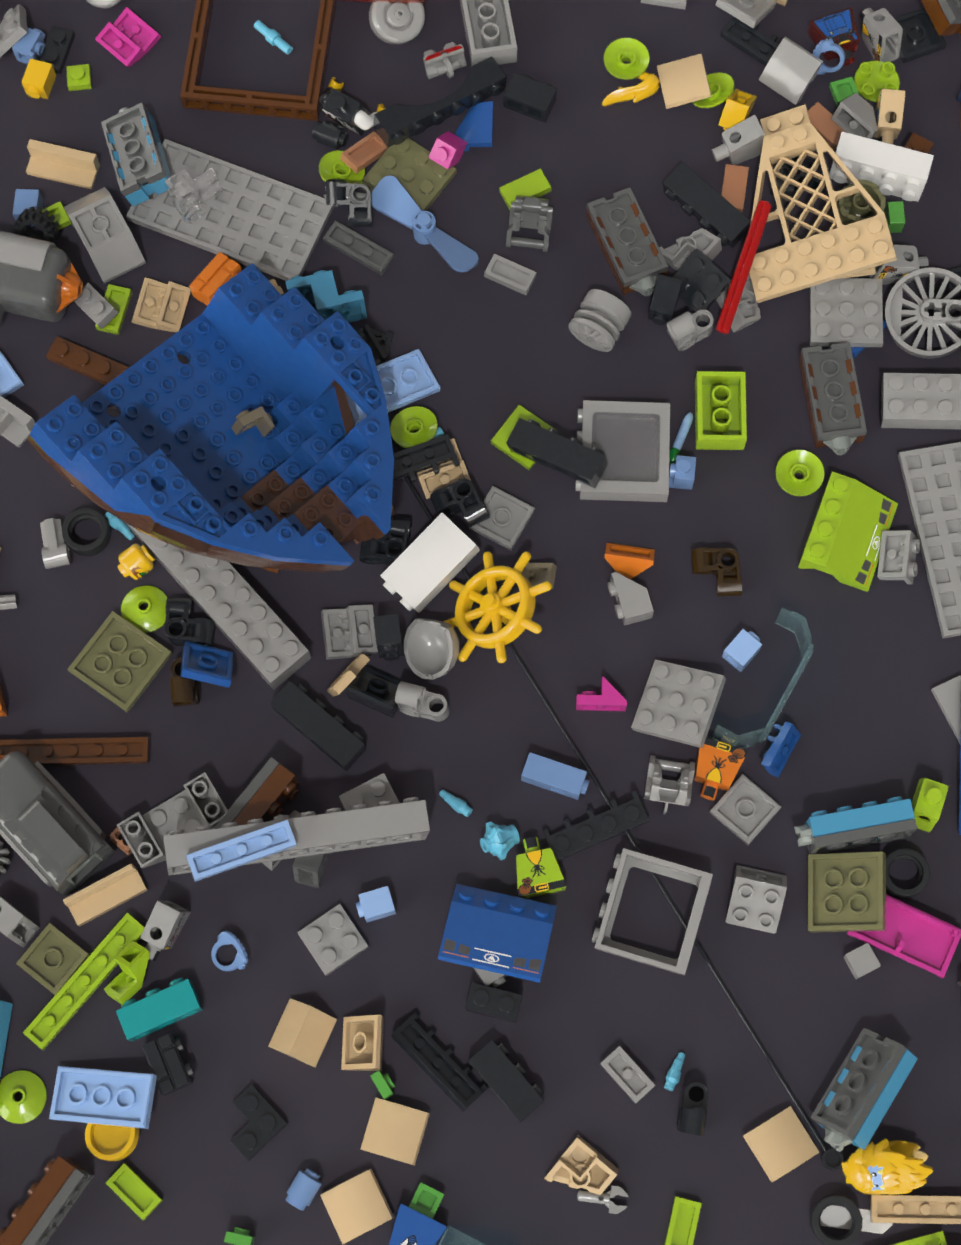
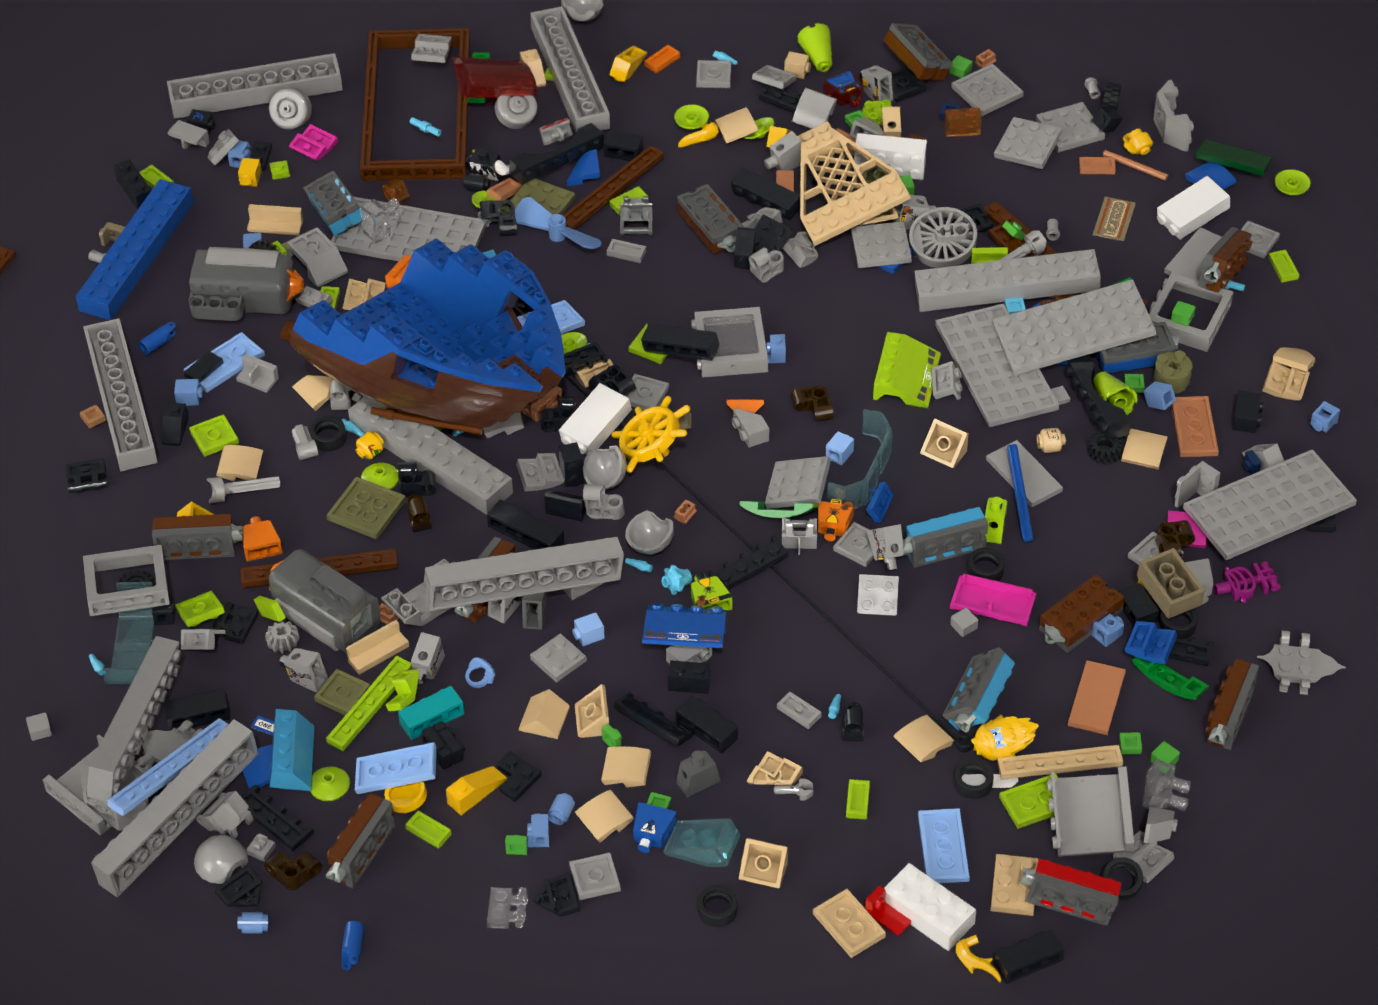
camera: 10 degrees left, 25 degrees down
(200, 1137) = (473, 788): none -> yellow slope
(207, 664) = (435, 495): blue tile -> none
(221, 139) = (392, 191): none -> clear orange brick
(241, 850) = (485, 568): light blue plate -> none
(257, 418) = (448, 337): dark tan bracket -> none
(270, 1219) = (538, 831): none -> medium blue brick
(347, 675) = (538, 496): tan tile -> none
(358, 247) = (499, 243): dark grey tile -> none
(447, 150) = (567, 180): dark pink brick -> none
(473, 764) = (649, 533): none -> light grey cylinder
(483, 1163) = (697, 773): none -> dark grey torso
(505, 166) = (612, 187): none -> reddish brown plate
(531, 728) = (685, 517): none -> nougat piece
(555, 776) = (711, 537): medium blue brick -> none
(600, 320) = (698, 264): light grey wheel -> none
(608, 700) = (742, 489): dark pink slope -> none
(623, 863) = (804, 579): light grey piece -> none
(646, 750) = (758, 508): none -> slope
(680, 437) = (772, 328): light blue piece -> none
(720, 410) = (798, 308): lime brick -> none
(743, 267) = (799, 221): red axle -> none
(779, 827) = (887, 544): none -> light grey torso
(799, 462) = (864, 340): lime dish -> none
(827, 45) = (835, 92): medium blue piece -> none
(832, 397) = (879, 292): dark grey piece -> none
(847, 892) = (944, 577): olive plate -> none
(879, 665) = (945, 443): none -> tan slope

